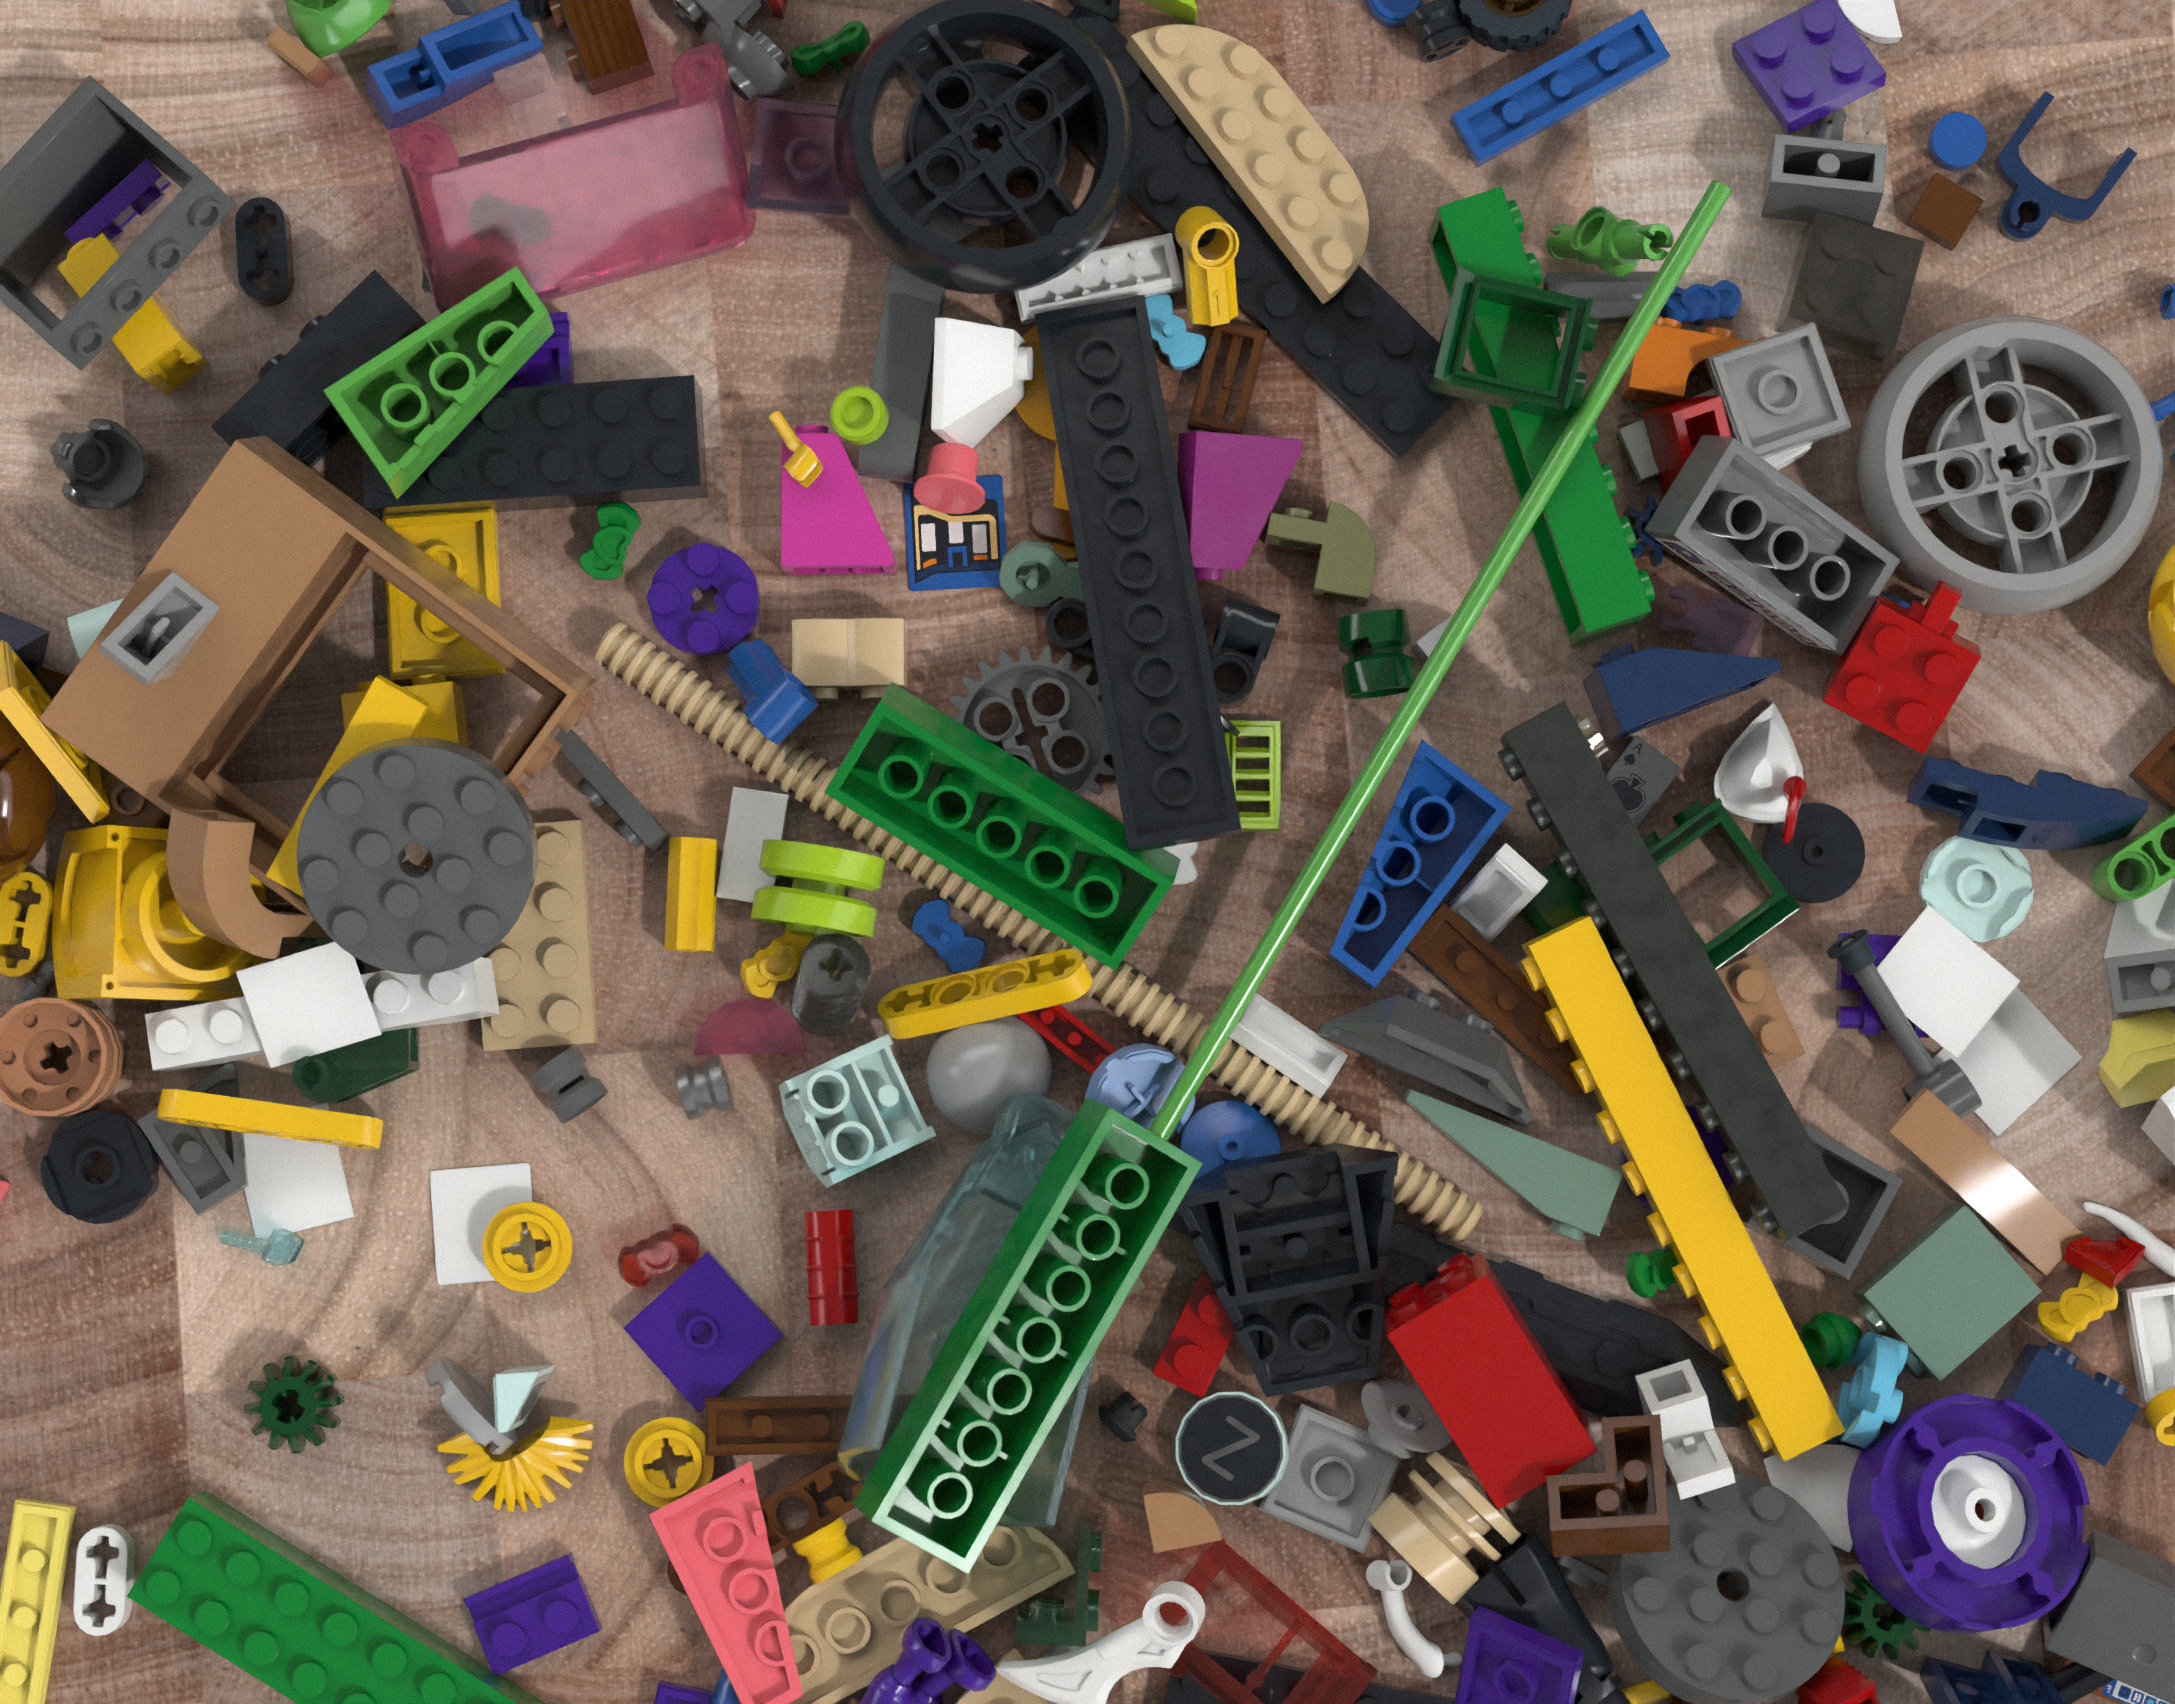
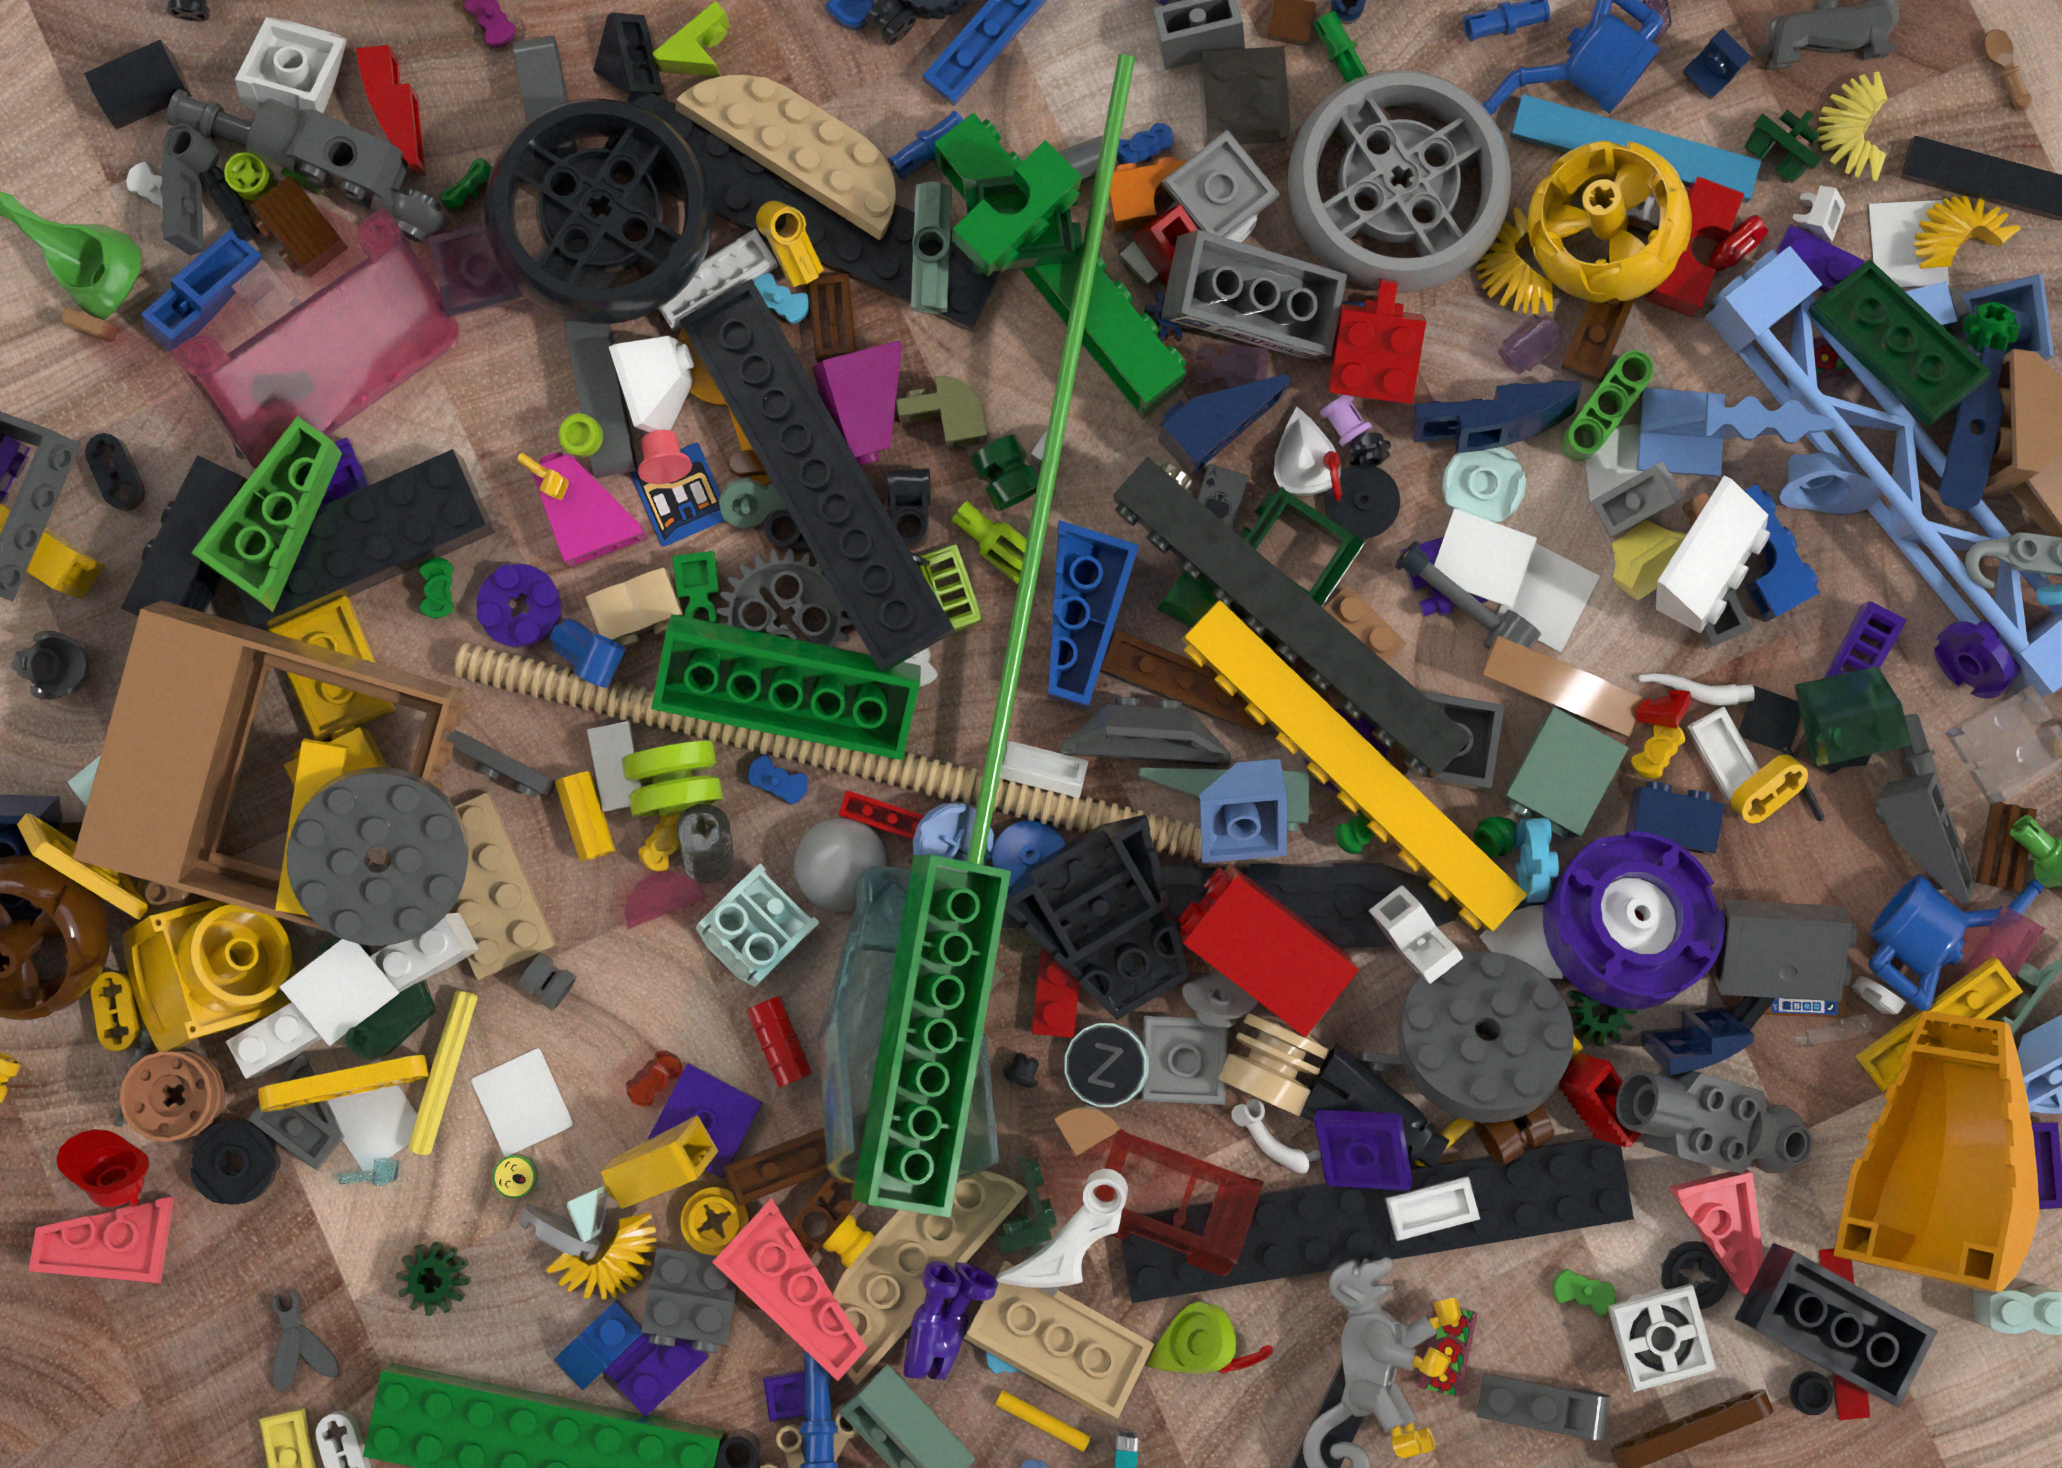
camera: 25 degrees left, 0 degrees up
(98, 1419) = (295, 1341): none -> dark grey piece
(160, 631) = (136, 763): light grey slope -> none
(213, 887) = (240, 932): medium nougat arch -> none
(398, 1150) = (442, 1072): none -> light yellow axle
(441, 1313) = (515, 1176): none -> light yellow tile
(470, 1564) = (599, 1344): none -> blue slope
(511, 1268) = (540, 1100): yellow gear -> none
(600, 1552) = (688, 1301): none -> dark grey plate
(627, 1366) = (659, 1163): none -> yellow slope
(704, 1087) = (643, 948): flat silver wheel -> none
(939, 648) = (697, 579): none -> green plate
(1040, 983) = (817, 810): yellow beam -> none
(1333, 737) = (998, 542): none -> lime arm
(1399, 308) = (931, 273): none -> sand green piece
(1421, 205) = (923, 147): none -> blue pin
(1470, 355) = (993, 237): none -> green arch
(1497, 893) = (1151, 608): white tile -> none
(1524, 1197) = (1245, 813): none -> medium blue slope
(1609, 241) = (1064, 124): bright green pin -> none
(1618, 1507) = (1386, 1005): reddish brown brick -> none
(1830, 743) = (1346, 419): none -> lavender bush
(1846, 791) = (1369, 450): none -> black plate
(1993, 267) = (1339, 46): none -> green axle
(2101, 730) = (1530, 343): none -> clear purple brick
(2106, 625) = (1508, 270): none -> yellow hair

